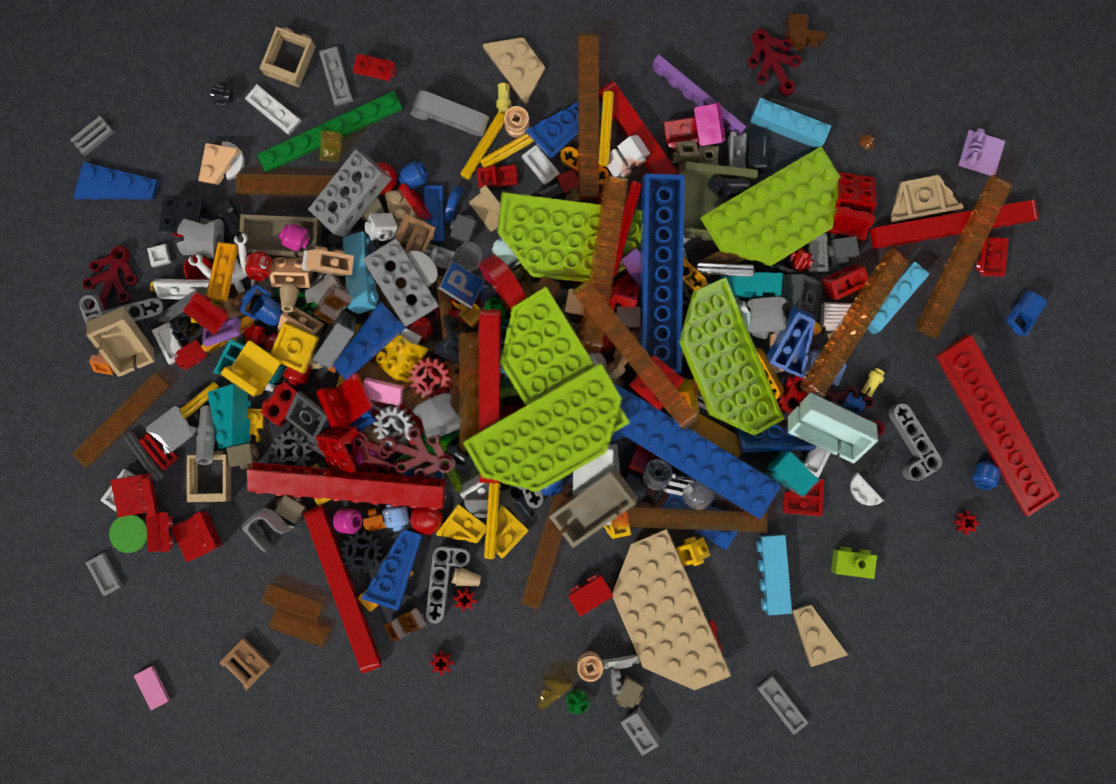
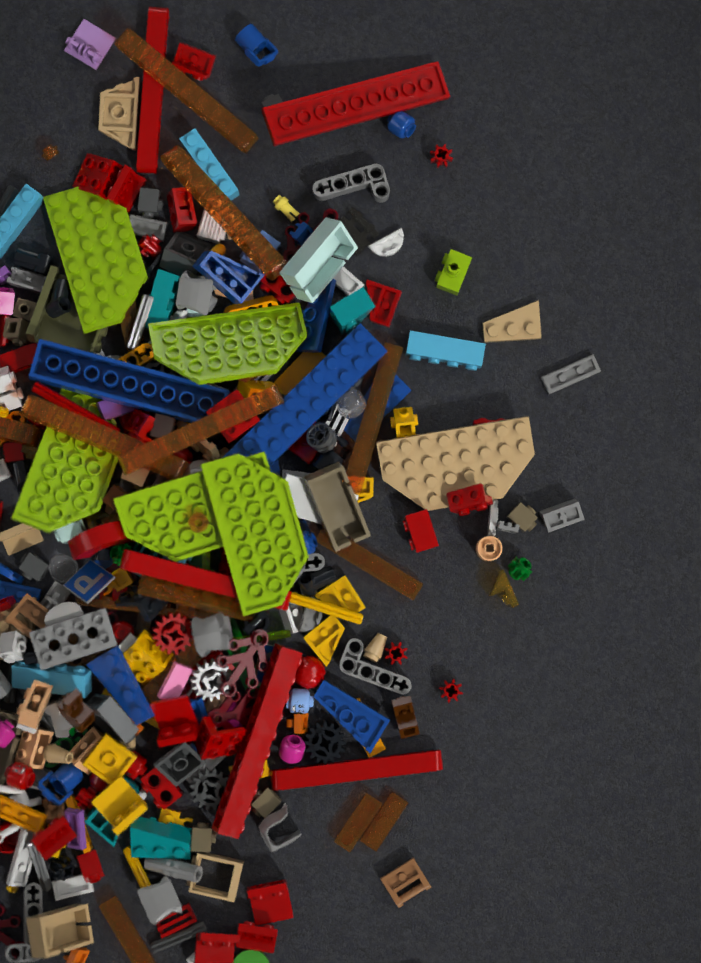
camera: 80 degrees left, 0 degrees up
(548, 371) = (193, 518): none -> clear orange plate
(633, 635) = (468, 499): none -> red bracket

